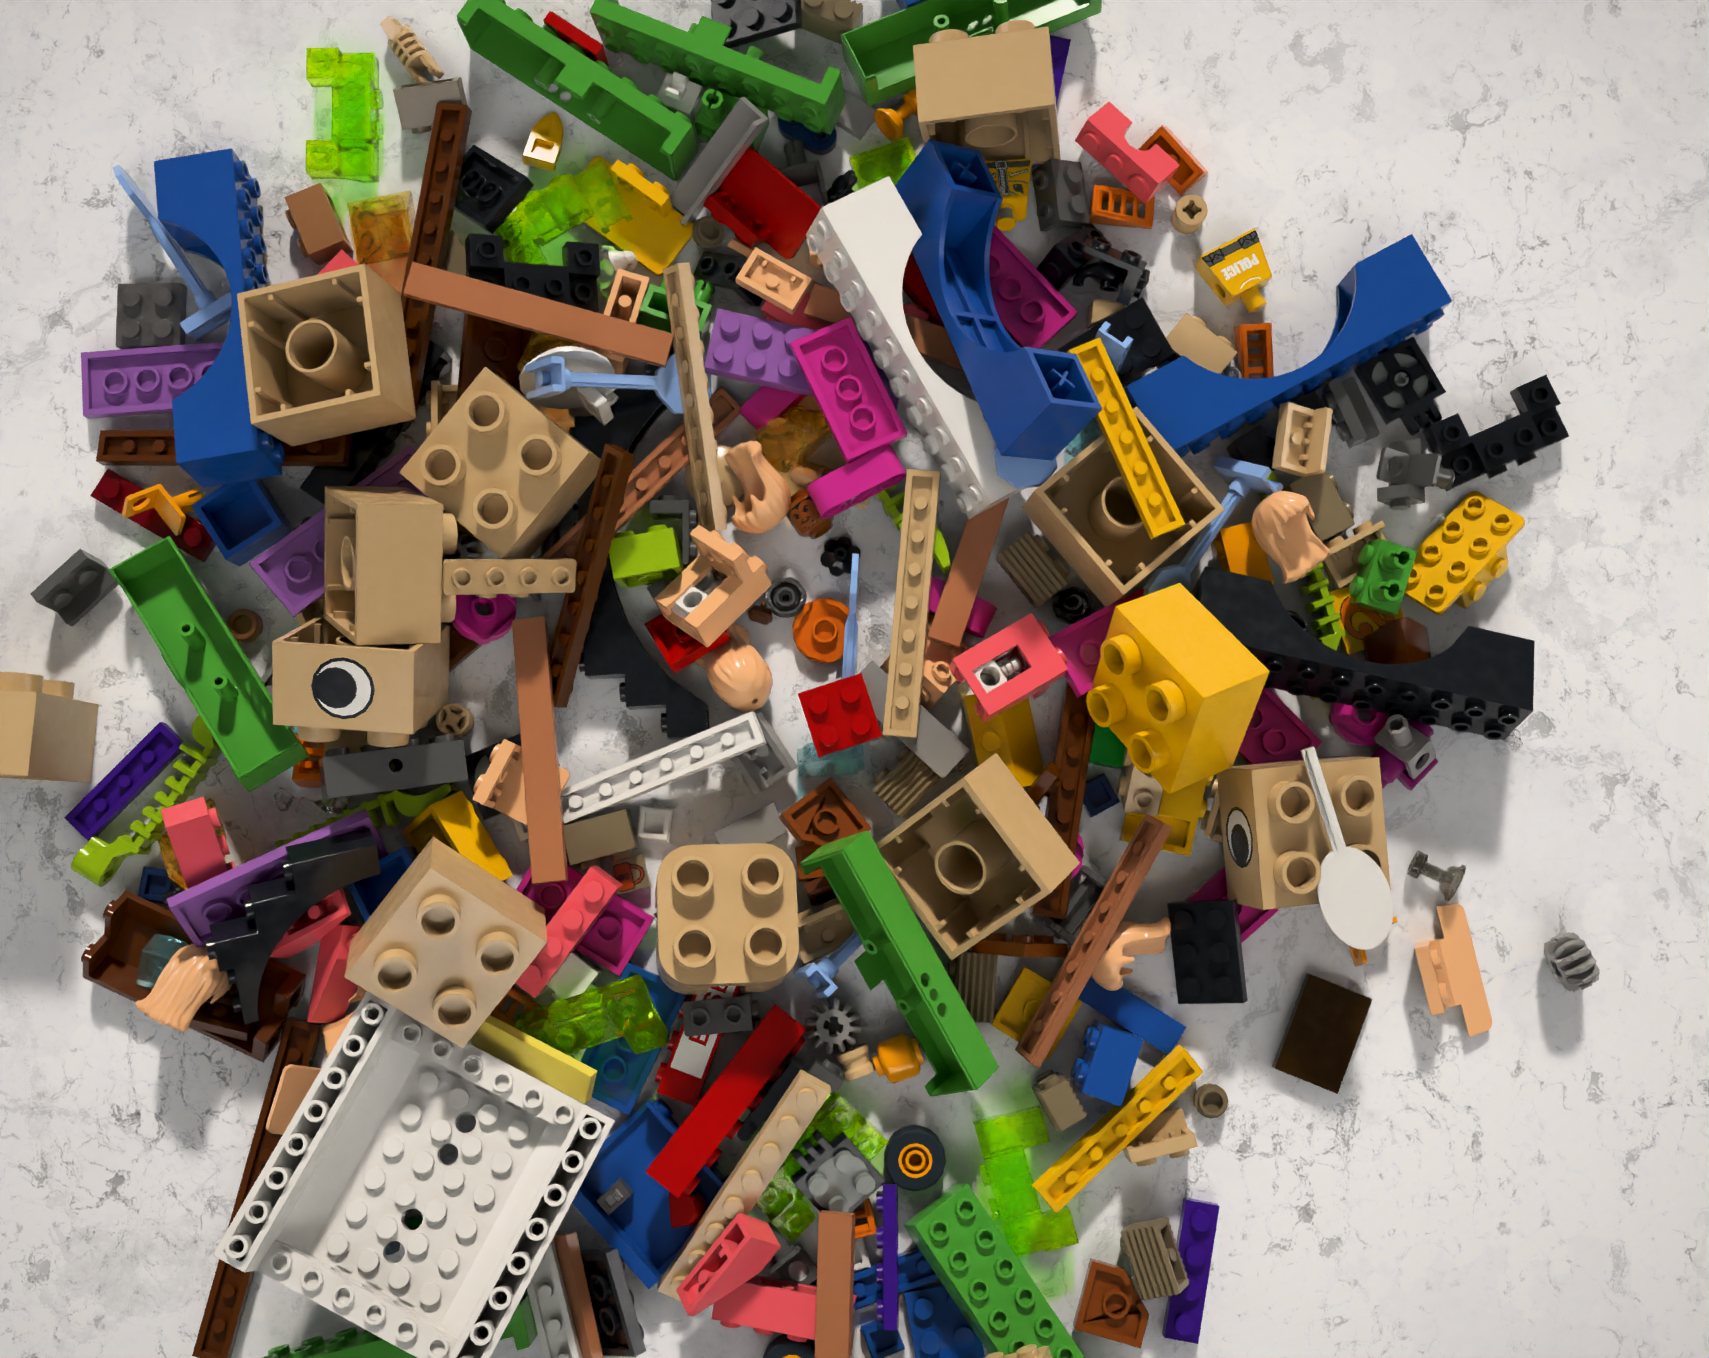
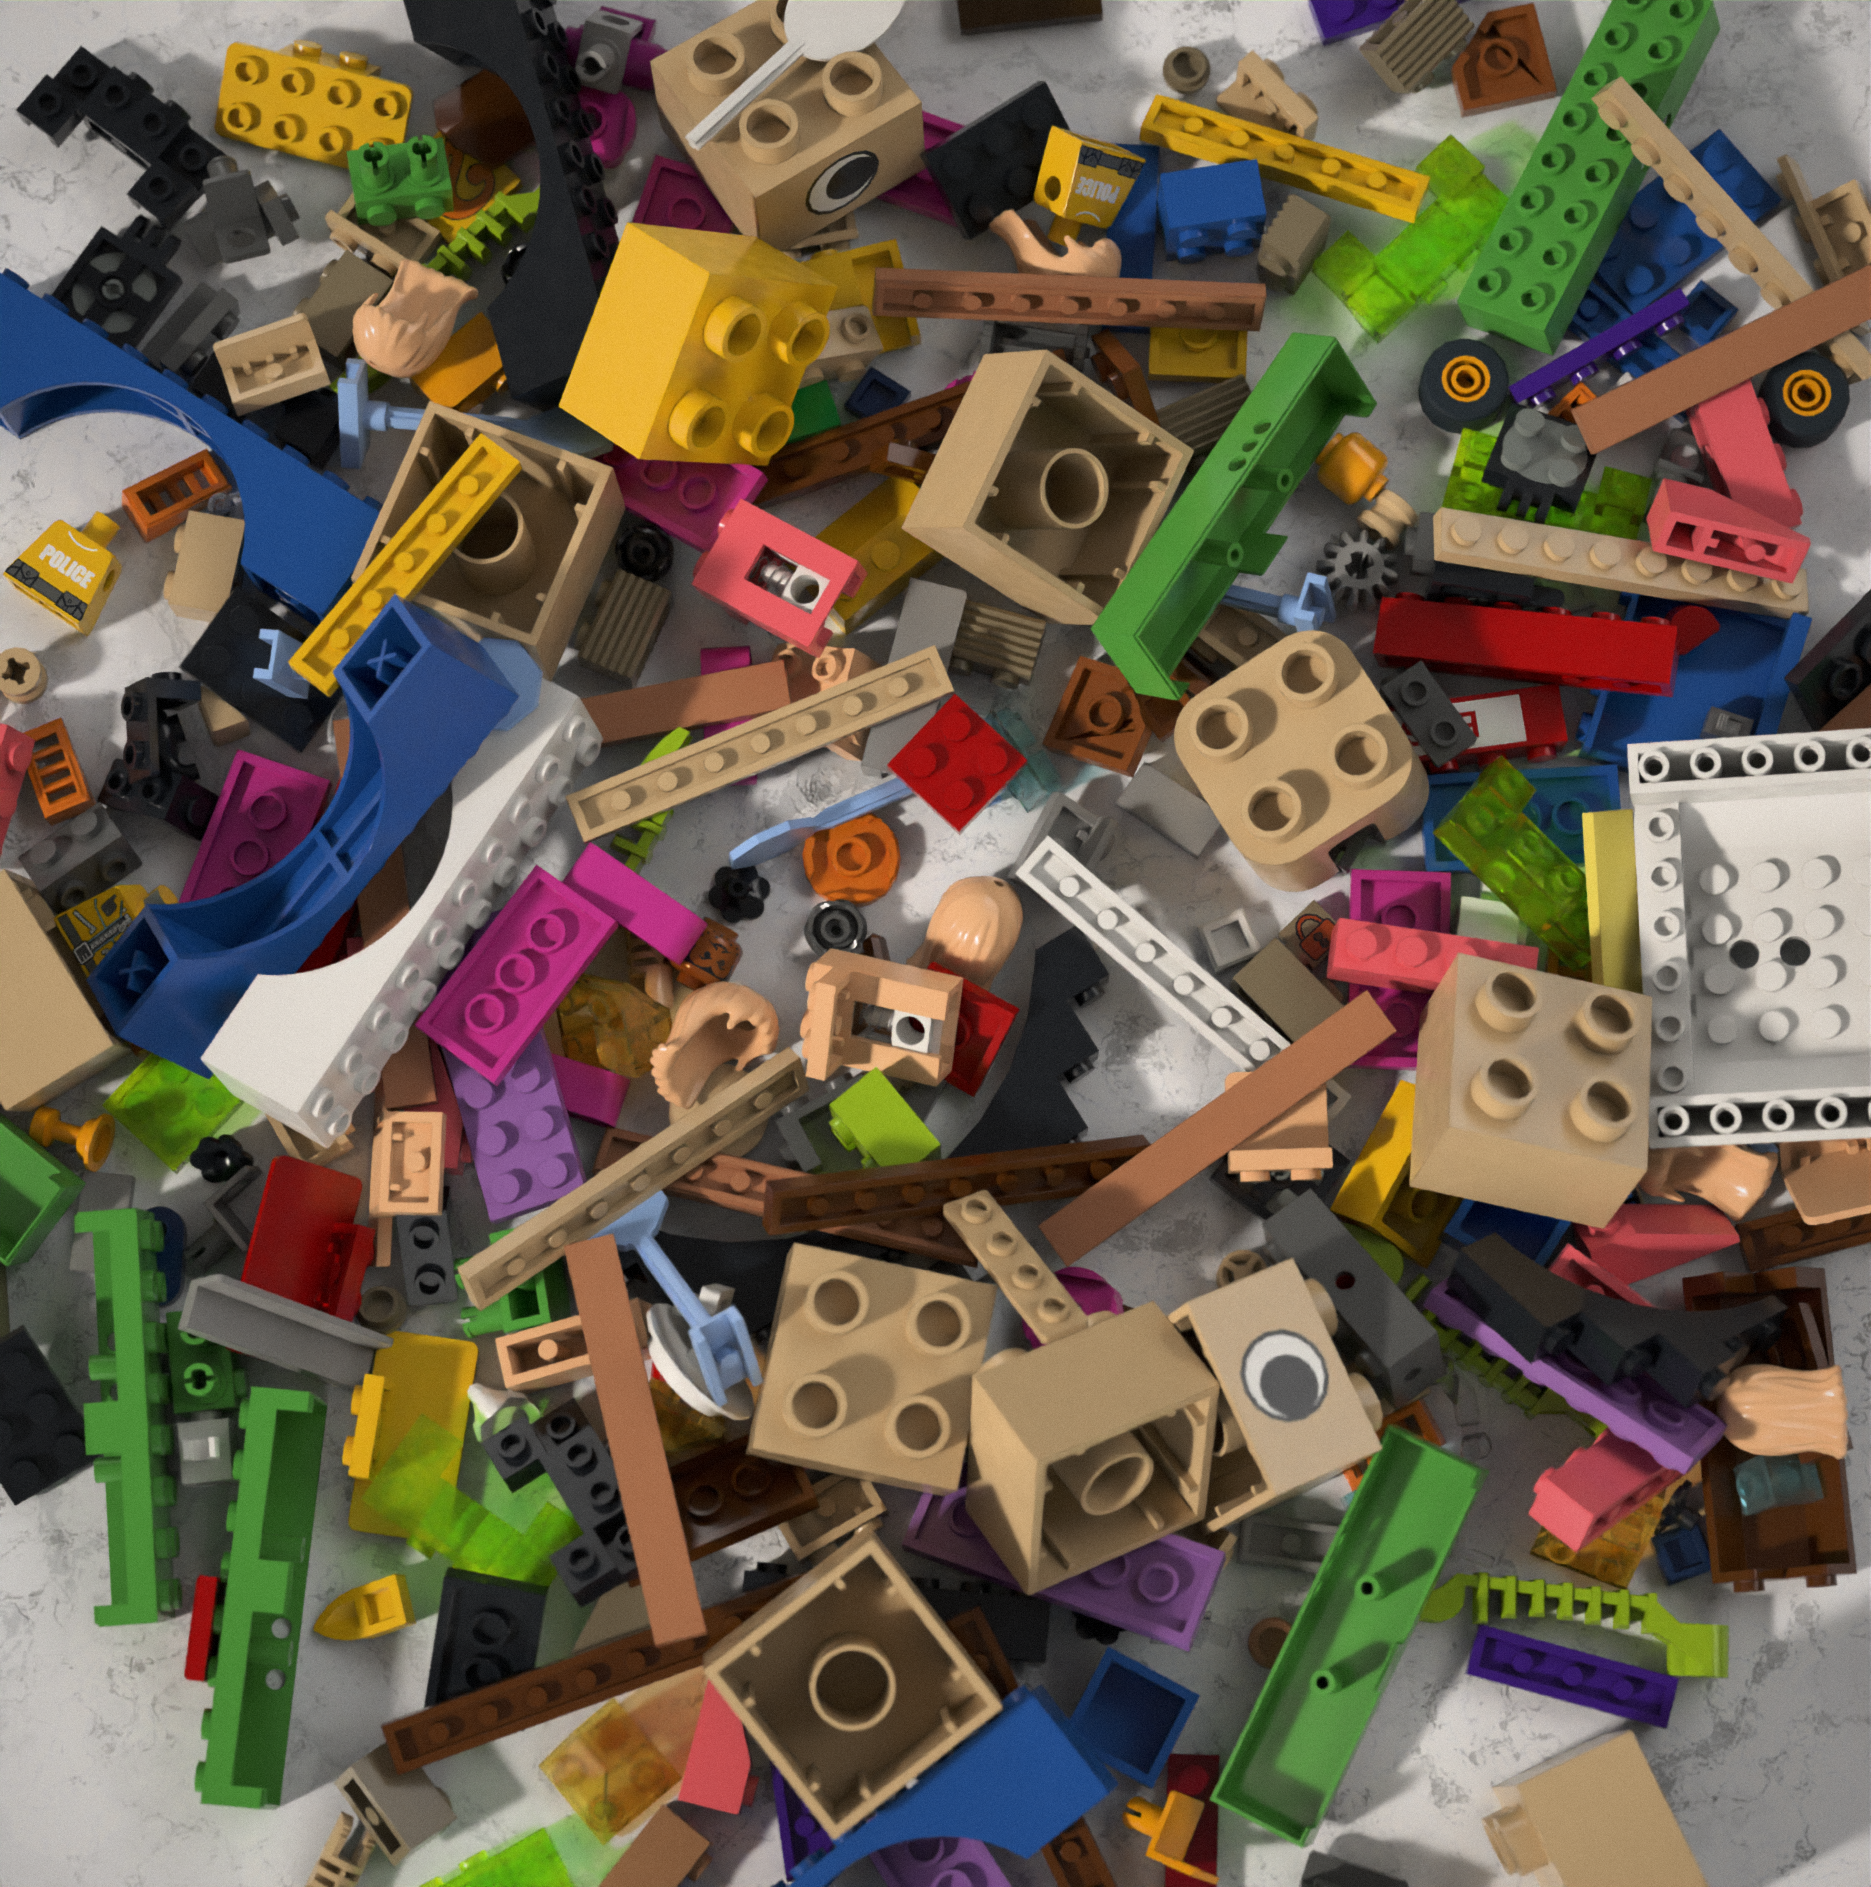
camera: 115 degrees left, 5 degrees down
(1167, 993) = (1083, 182): none -> yellow torso

